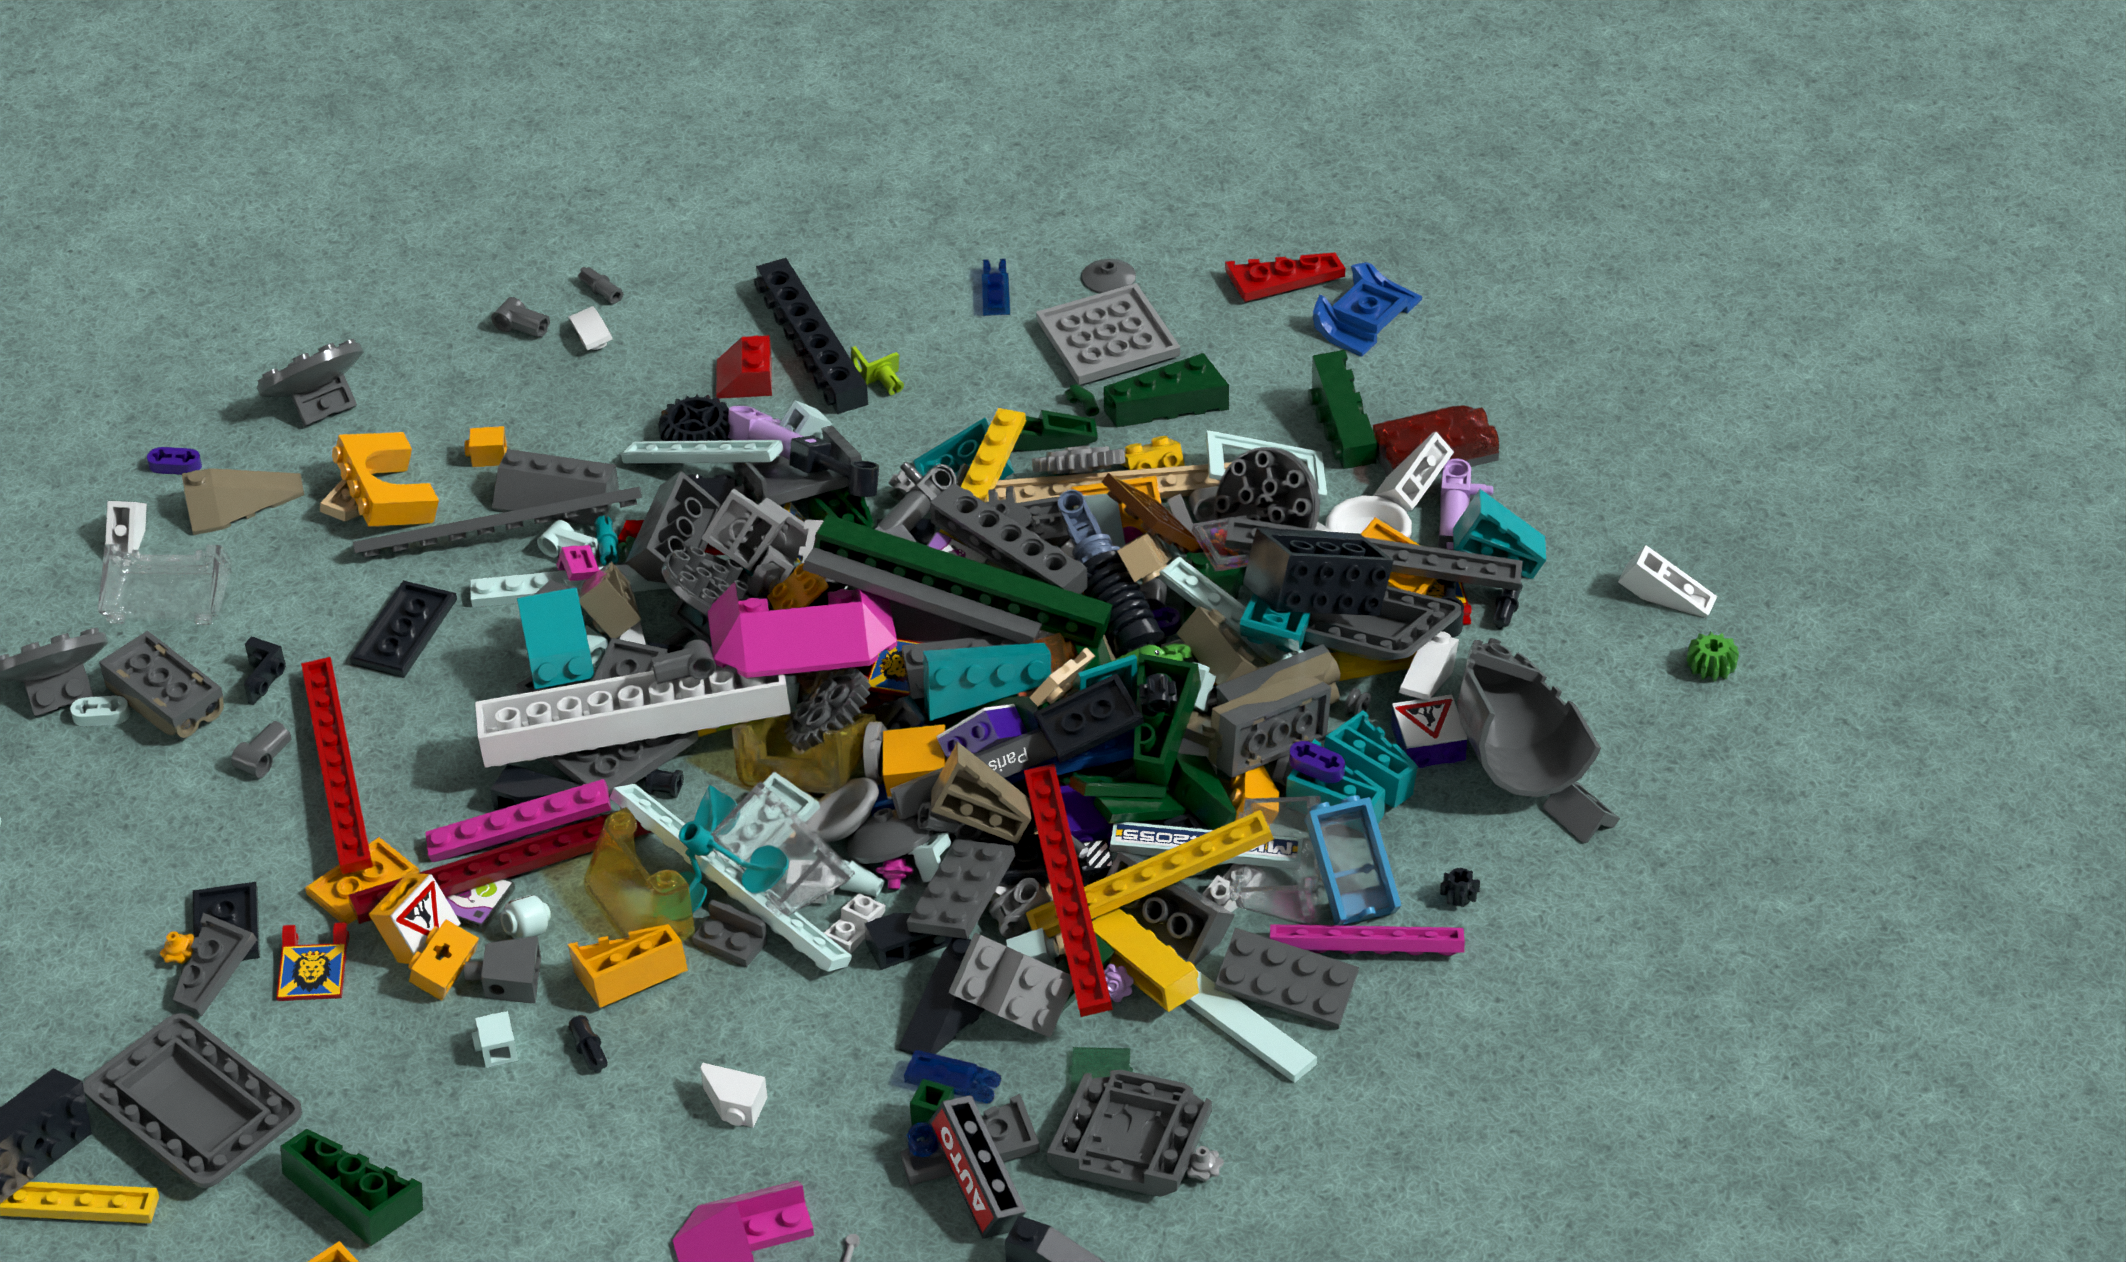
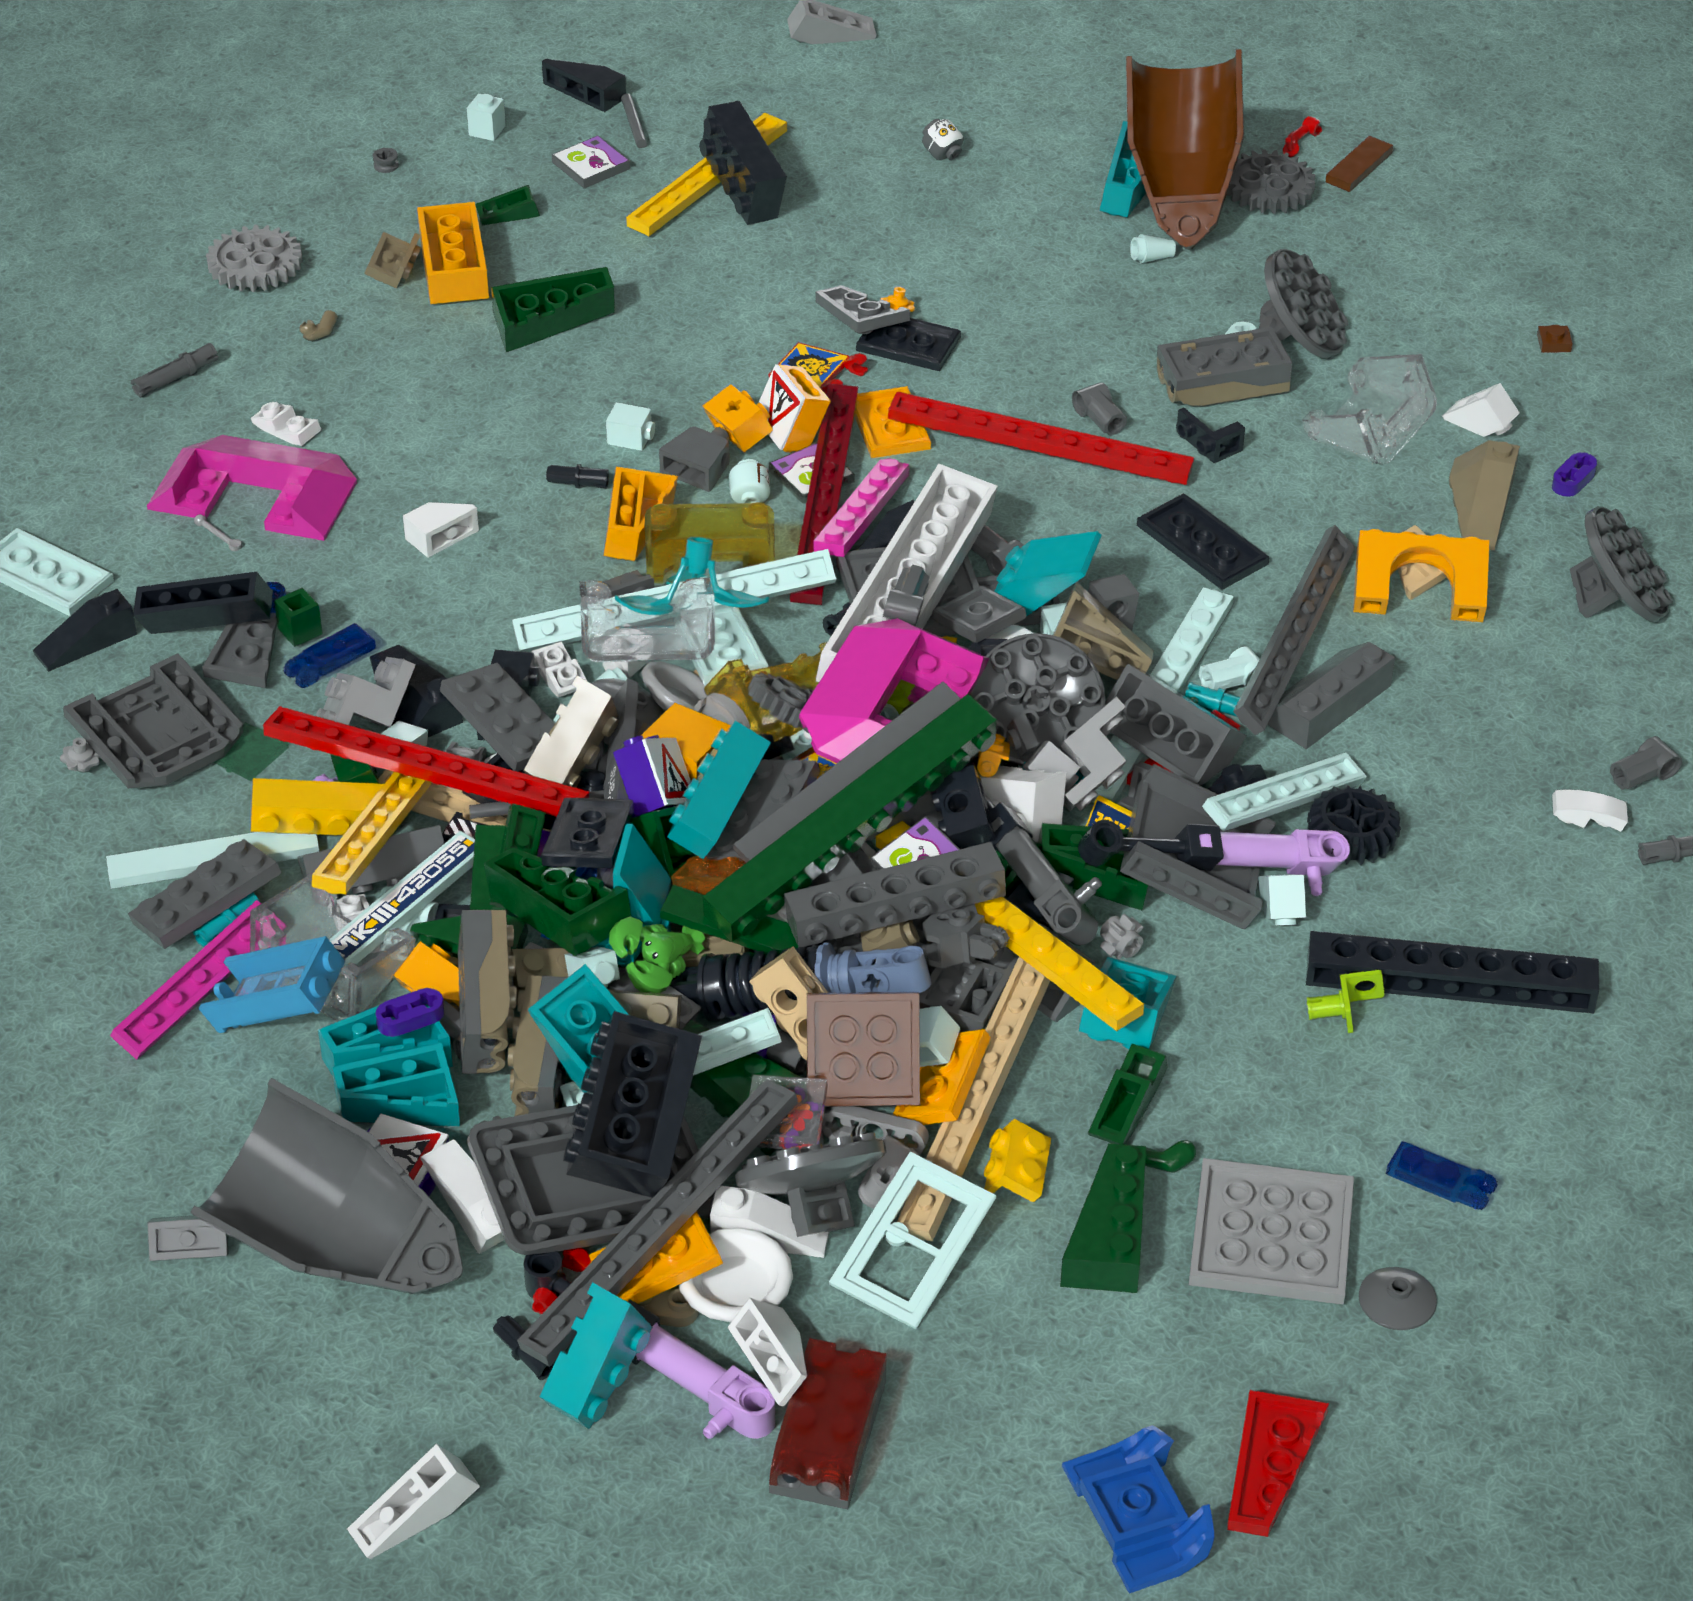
camera: 120 degrees right, 0 degrees up
(192, 1100) = (714, 258): dark grey wedge -> none
(486, 446) = (1432, 668): light orange brick -> none
(577, 562) = (1180, 650): dark pink bracket -> none
(745, 369) = (1422, 903): red slope -> none
(1058, 683) = (651, 830): tan wing -> none
(1078, 460) = (1032, 1064): light grey gear -> none
(1158, 693) = (550, 865): black gear -> none
(1341, 410) = (951, 1357): dark green wedge -> none
(1460, 887) = (186, 1077): black gear -> none
(1712, 656) = (275, 1476): bright green gear -> none

